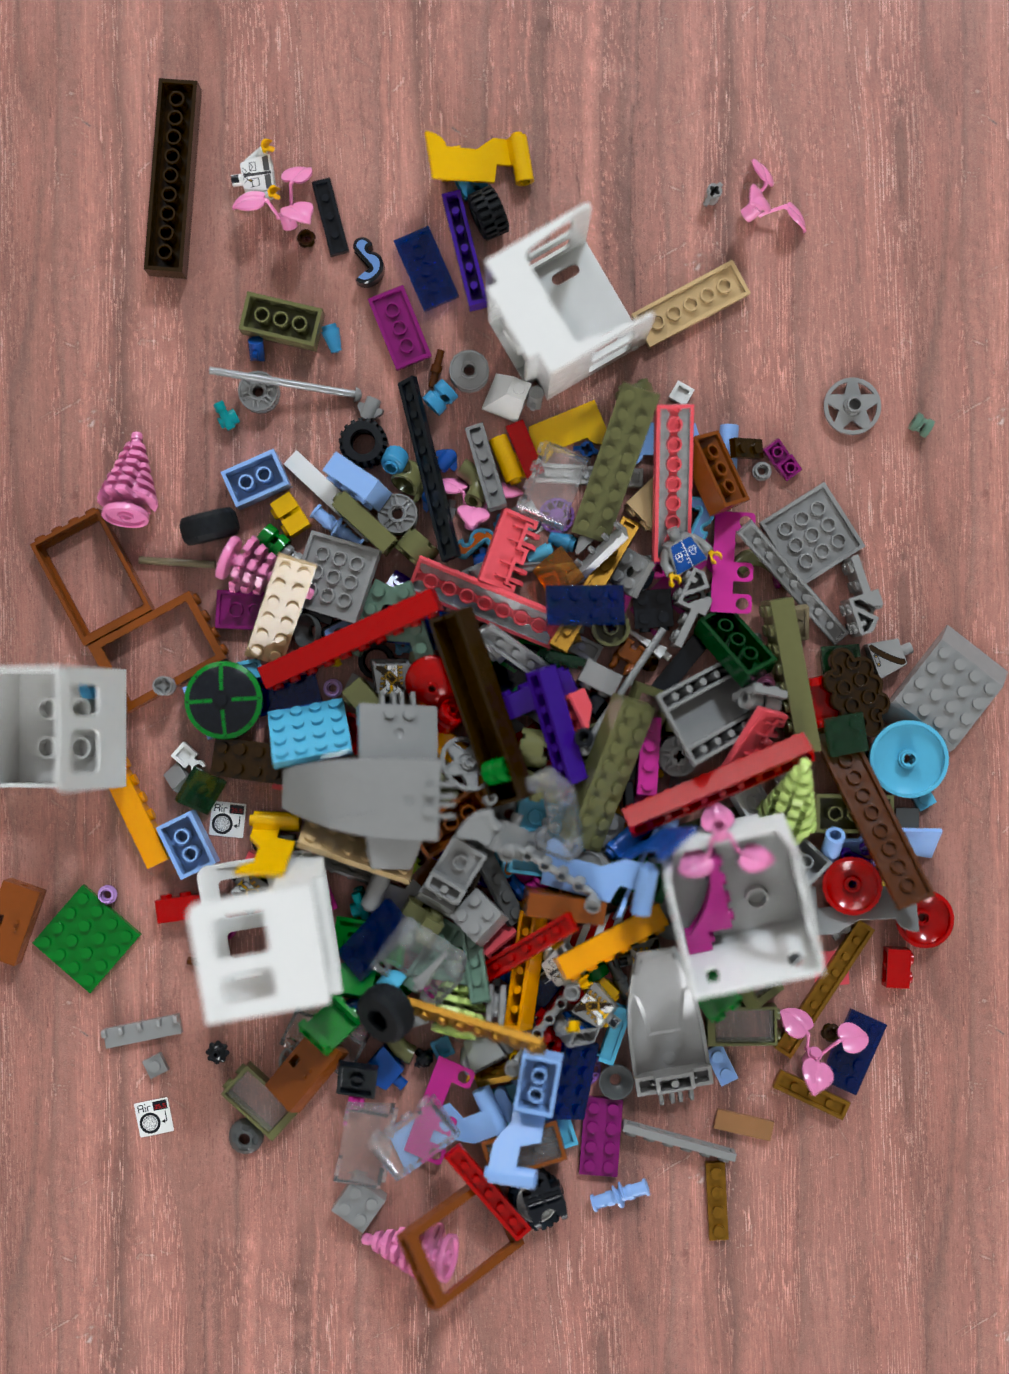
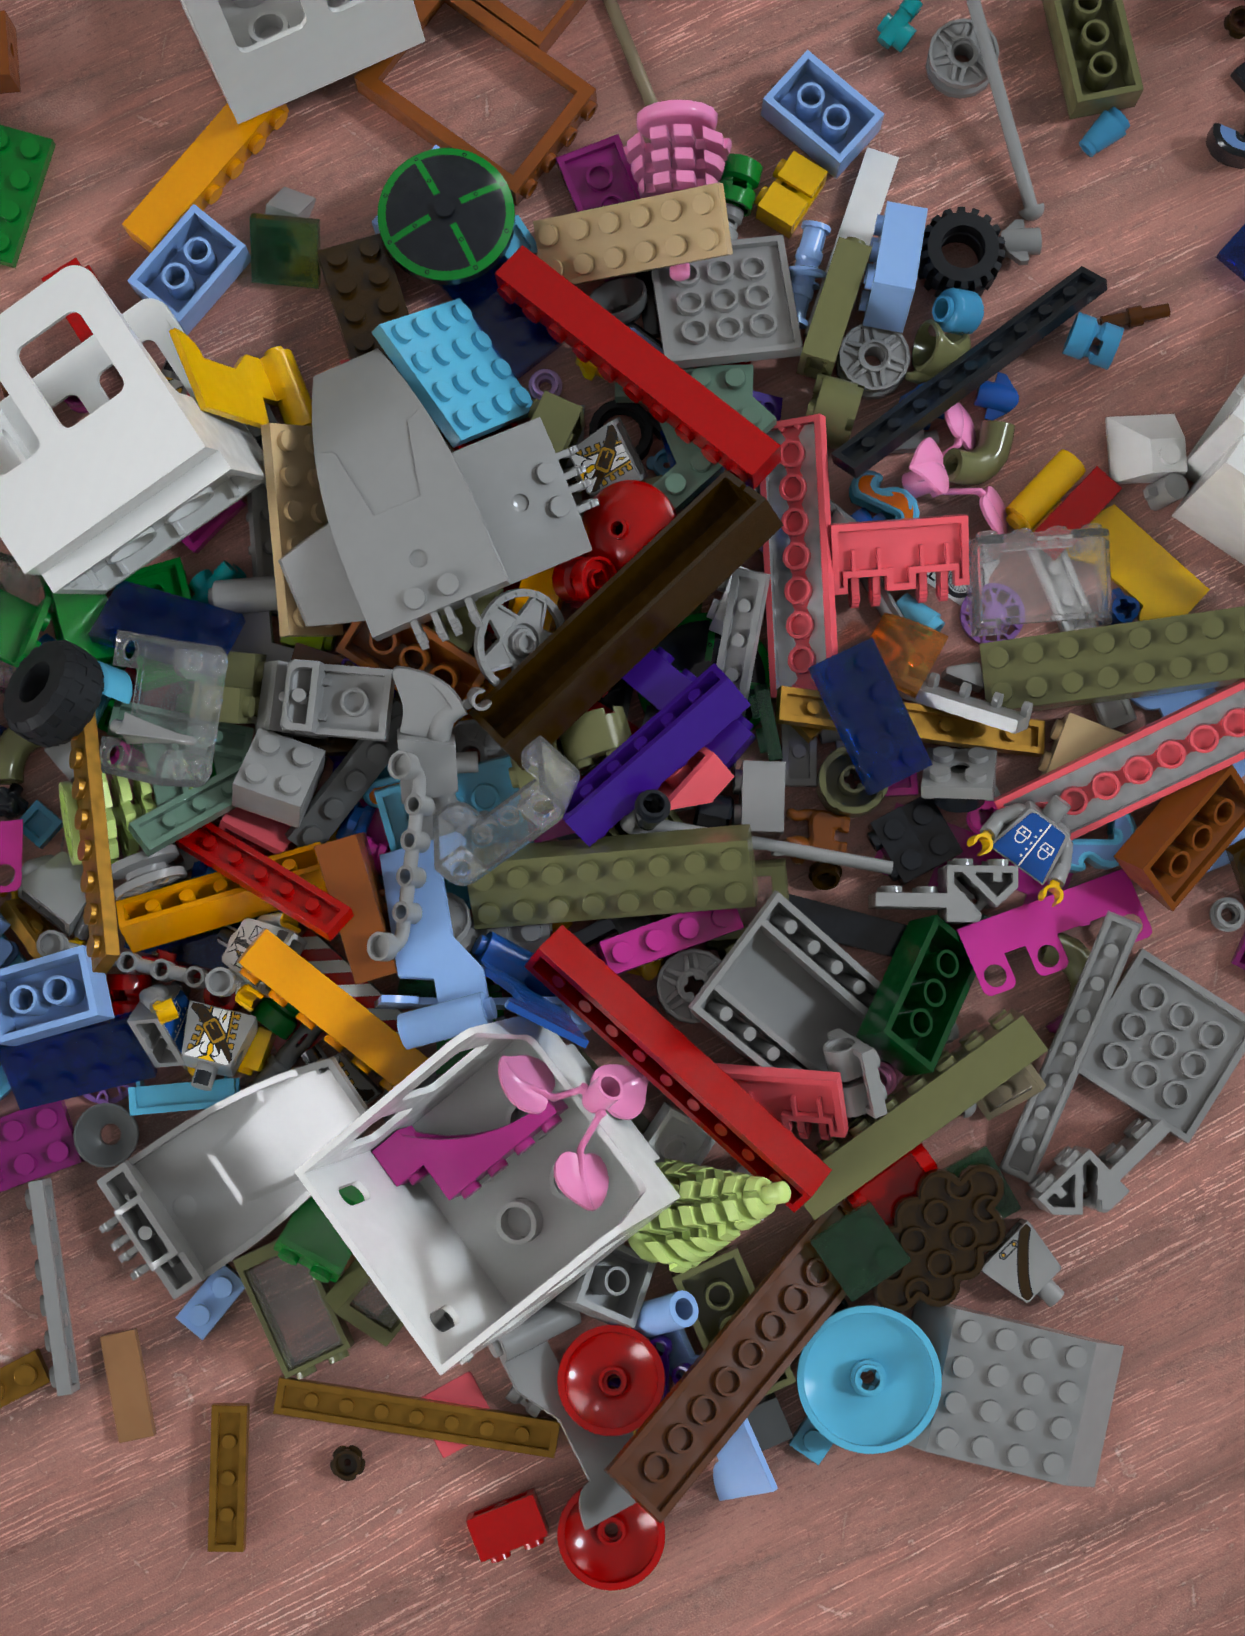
camera: 65 degrees right, 5 degrees down
(101, 894) = (52, 176): lavender plate -> none
(164, 685) = (428, 108): light grey wheel -> none
(186, 756) = (331, 207): white plate -> none
(209, 526) = (713, 70): black tyre -> none
(227, 819) = (258, 318): white sticker -> none
(256, 348) = (1028, 23): blue piece -> none
(399, 327) = (1171, 229): magenta plate -> none
(467, 359) = (1162, 348): light grey wheel -> none
(486, 467) = (1016, 461): dark grey plate -> none
(495, 771) = (528, 687): green wheel -> none
(567, 541) = (958, 647): dark azure cone -> none
(660, 651) = (852, 878): white piece -> none
(816, 1074) = (266, 1458): bright pink plant -> none
(851, 1068) = (332, 1517): clear blue plate -> none

